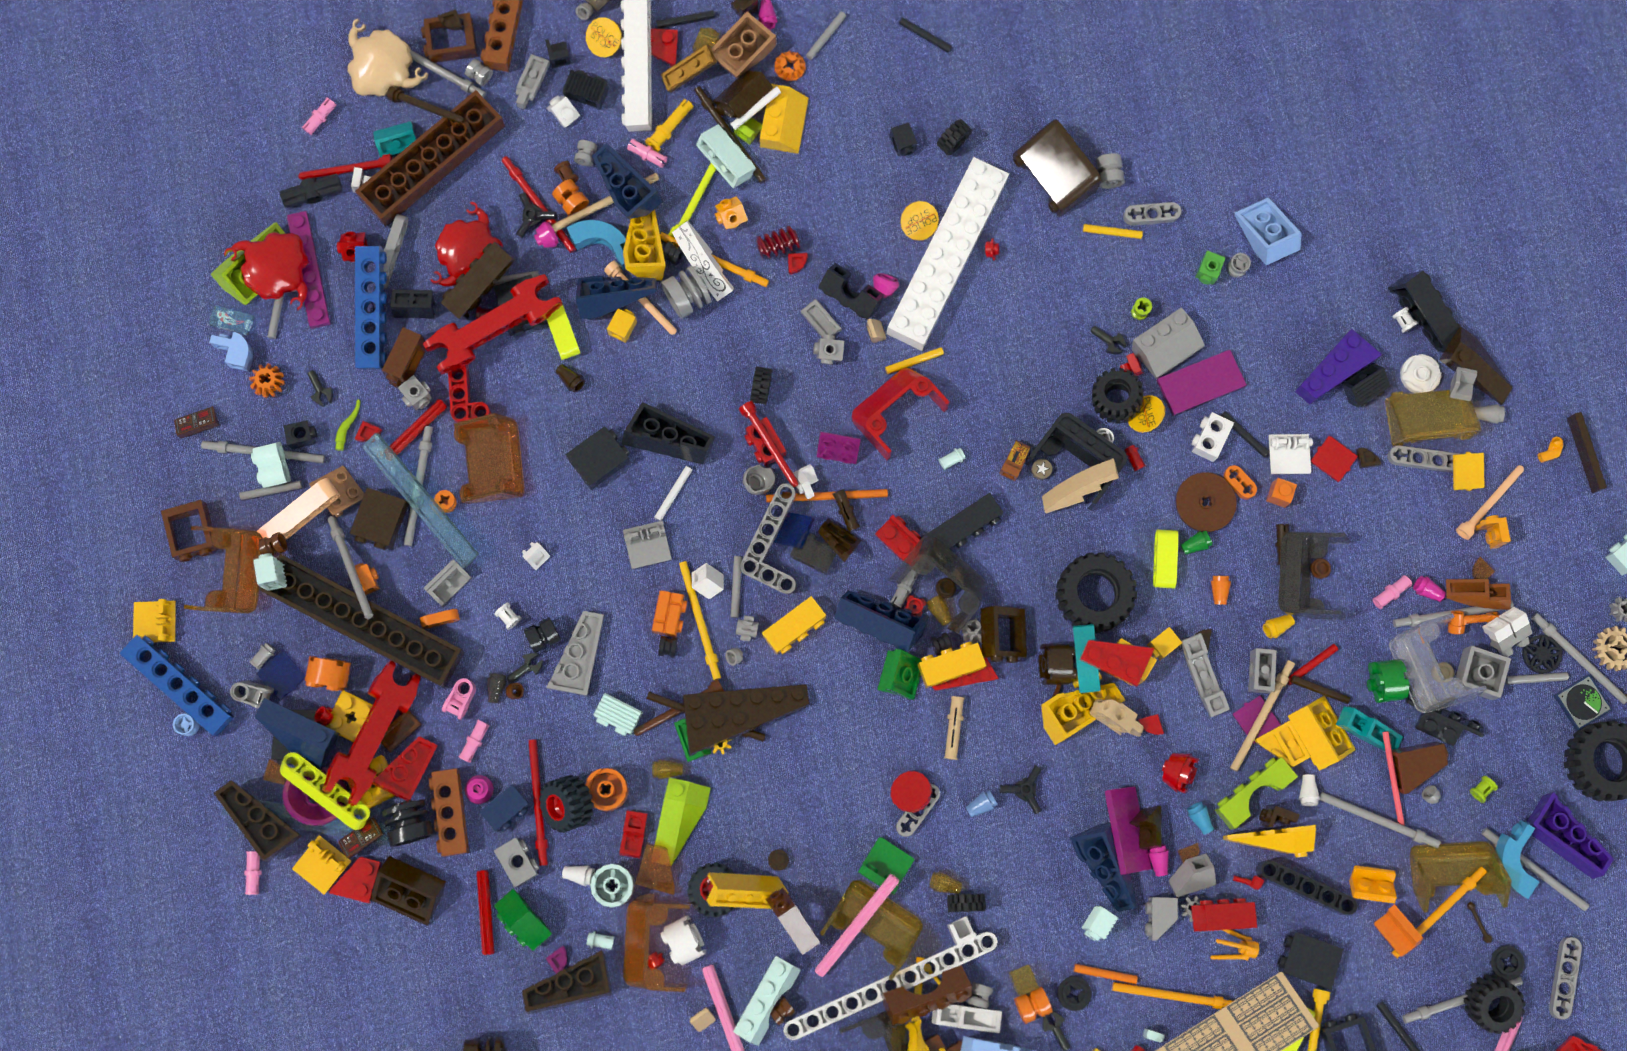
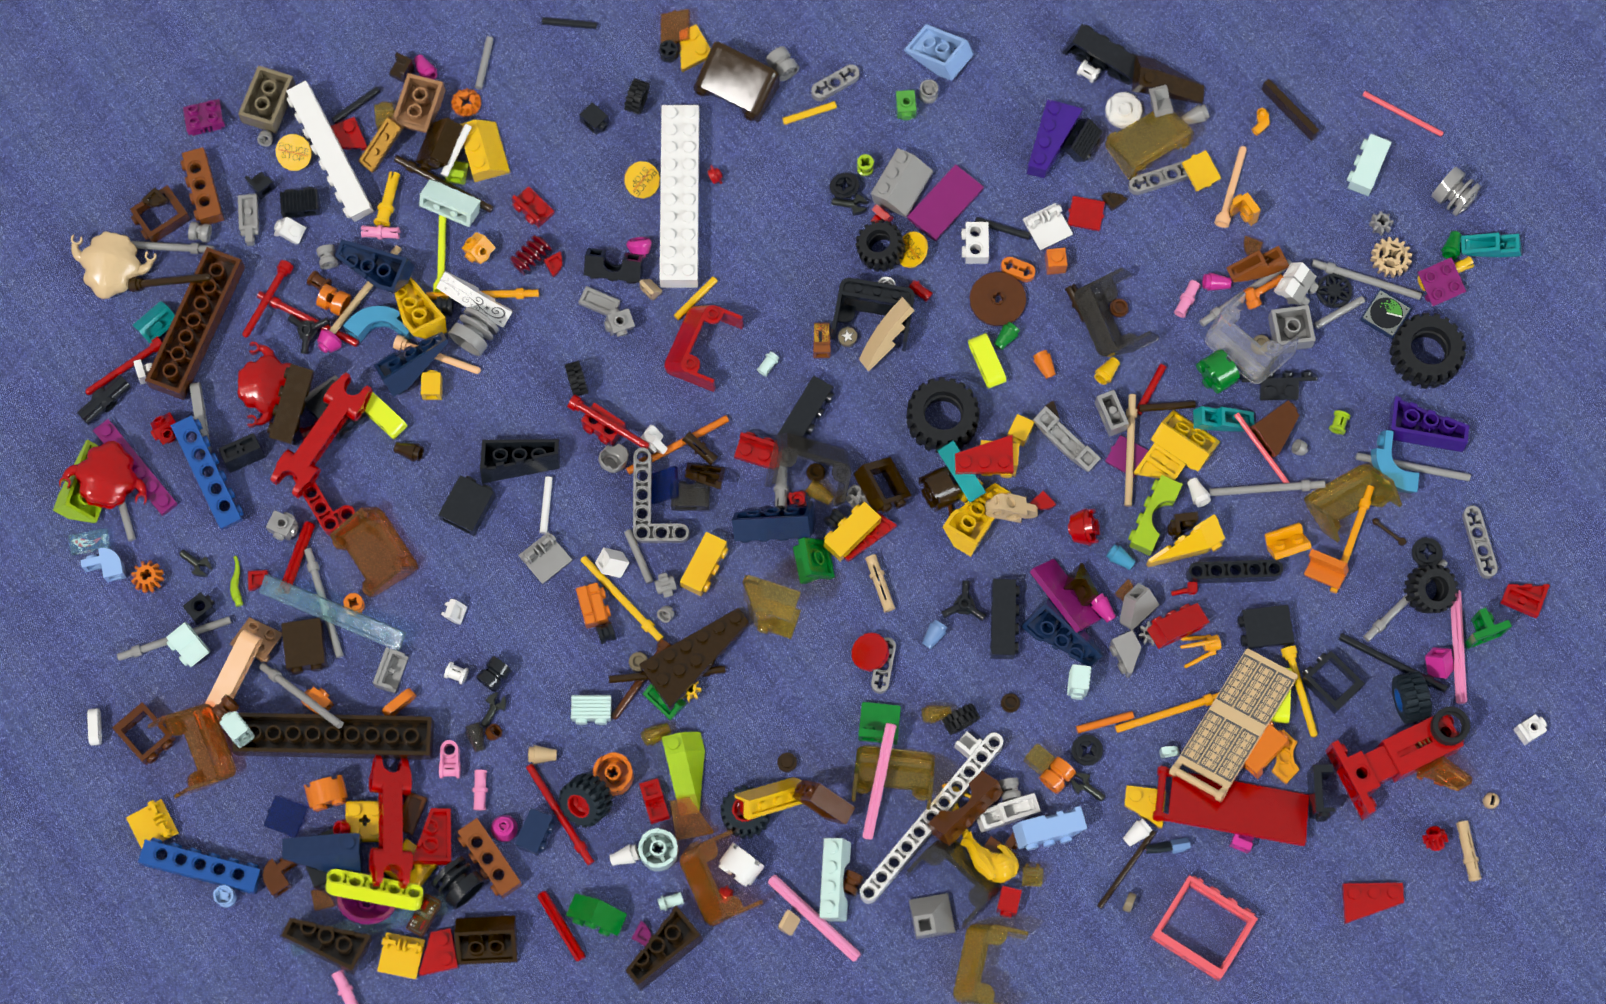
camera: 20 degrees left, 5 degrees down
(147, 501) = (94, 726): none -> white beam
(196, 422) = (103, 641): slope -> none
(241, 731) = (274, 876): none -> reddish brown brick
(254, 693) = (271, 842): light grey piece -> none
(262, 655) = (261, 807): light grey pin -> none
(270, 490) = (197, 667): light grey bar -> none
(319, 116) = (78, 333): bright pink pin -> none
(404, 357) = (258, 499): reddish brown window -> none
(506, 855) = (574, 880): light grey brick -> none
(539, 146) = (283, 269): none -> red piece
(548, 735) = (541, 754): none -> tan cone
(578, 659) = (534, 680): light grey wing -> none
(684, 687) = (635, 659): none -> dark tan tile
(803, 197) = (533, 207): none -> red bracket
(836, 703) = (771, 606): none -> clear yellow windscreen
(838, 448) = (667, 399): magenta hinge -> none
(1004, 103) = (667, 47): none -> black wheel
(1022, 909) = (1010, 703): none -> dark brown plate
(1024, 86) = (675, 26): none -> clear orange piece
(1032, 114) = (693, 50): none -> yellow wing
(1056, 823) = (1003, 619): none -> black brick
(1109, 312) = (838, 182): none -> black gear

